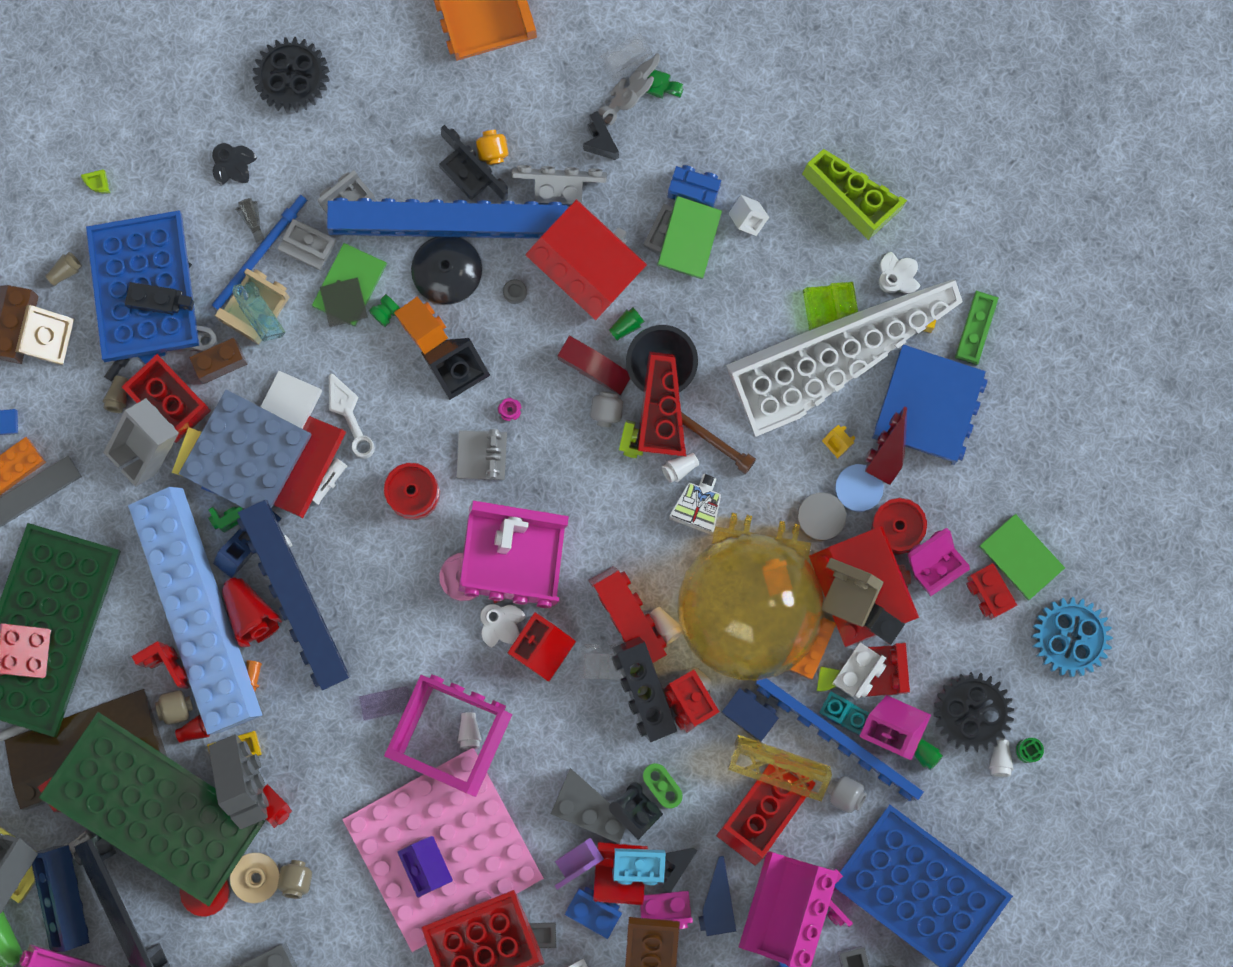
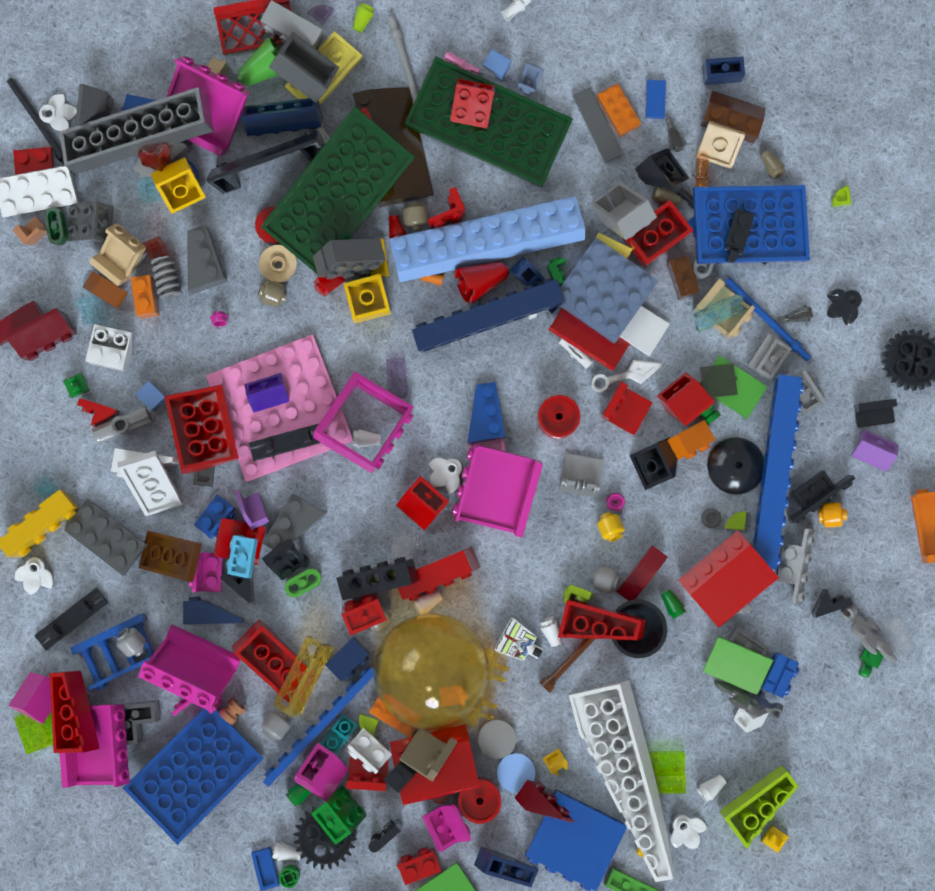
camera: 95 degrees right, 5 degrees up
(43, 391) = (675, 139): none -> clear smoke cone
(83, 354) = (701, 173): none -> clear orange axle
(84, 403) = (661, 170): none -> black slope
(288, 753) = (367, 298): none -> yellow brick
(335, 945) = (219, 318): none -> dark pink plate
(361, 112) = (875, 413): none -> black panel
(371, 338) = (685, 399): none -> red slope
(392, 410) = (626, 409): none -> red bracket
(407, 105) = (876, 450): none -> medium lavender panel
(420, 582) = (486, 415): none -> blue wing
(486, 834) = (283, 443): none -> black hinge
(504, 537) = (512, 485): white bracket -> none
(514, 260) = (736, 521): none -> lime tile
(541, 410) = (610, 527): none -> yellow head
(733, 213) = (754, 704): none -> flat silver piece
(837, 853) = (232, 711): none -> nougat wheel
(842, 252) = (711, 788): none -> white cone
(890, 170) = (774, 838): none -> yellow tile
(945, 697) = (339, 815): none -> green bracket
(955, 631) = (390, 830): none -> black plate
(975, 485) = (505, 867): none -> dark blue slope
(1025, 783) = (265, 868): none -> blue tile

